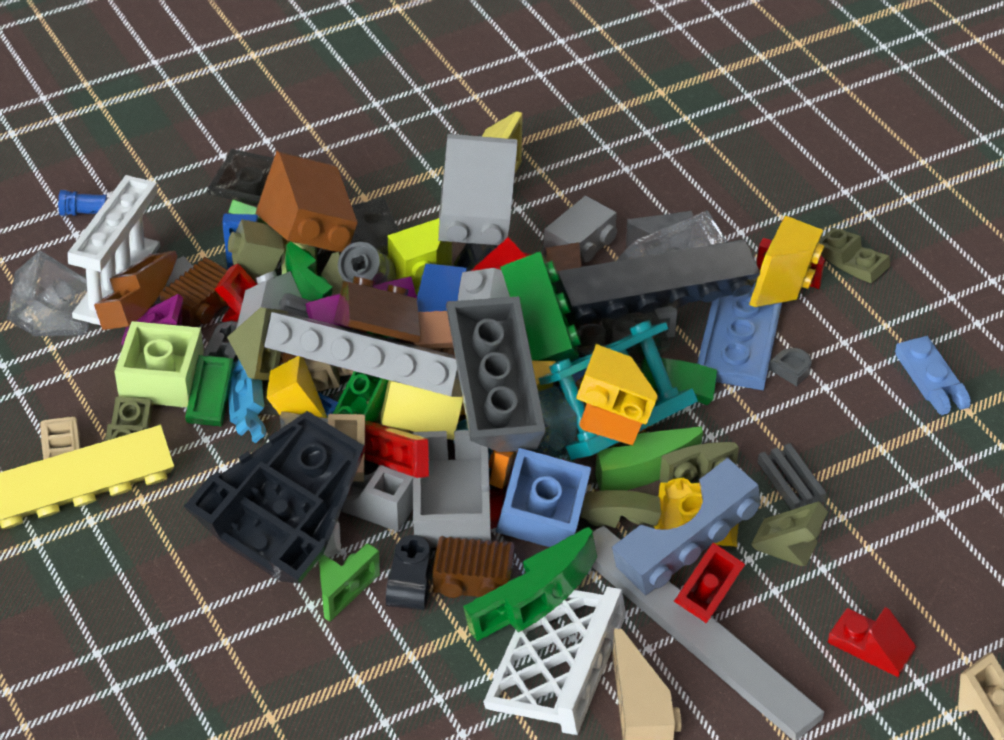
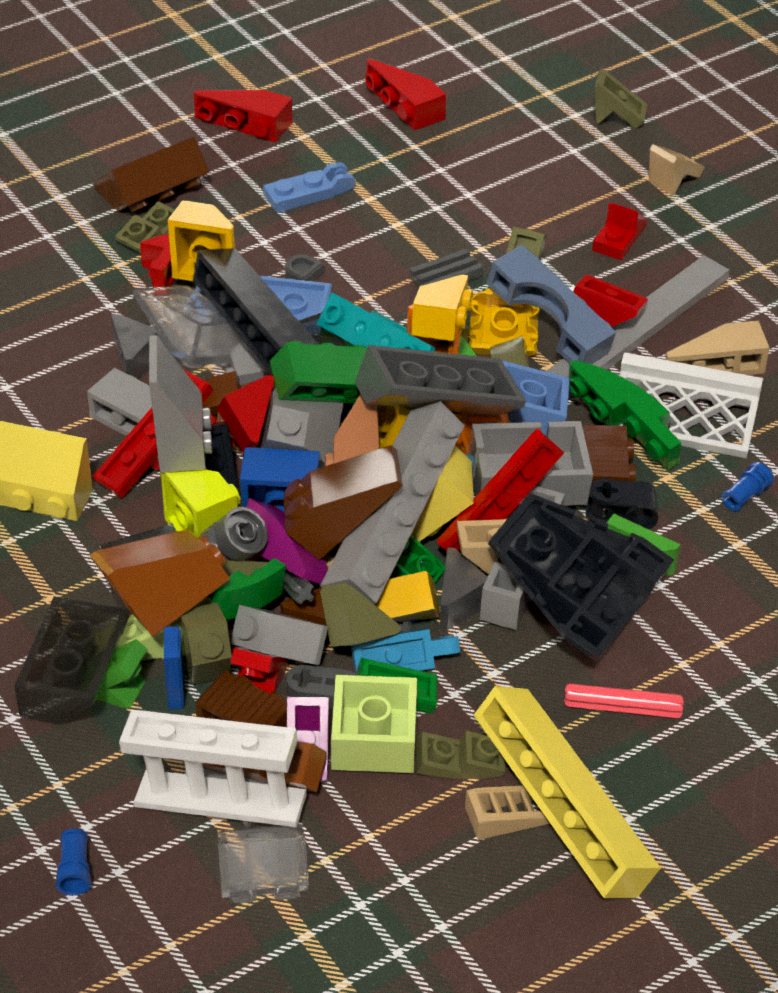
camera: 95 degrees left, 0 degrees up
(162, 550) = (623, 700): none -> coral axle
(432, 693) = (751, 483): none -> blue pin
(550, 242) = (136, 451): none -> red tile
(928, 251) = (153, 176): none -> reddish brown slope

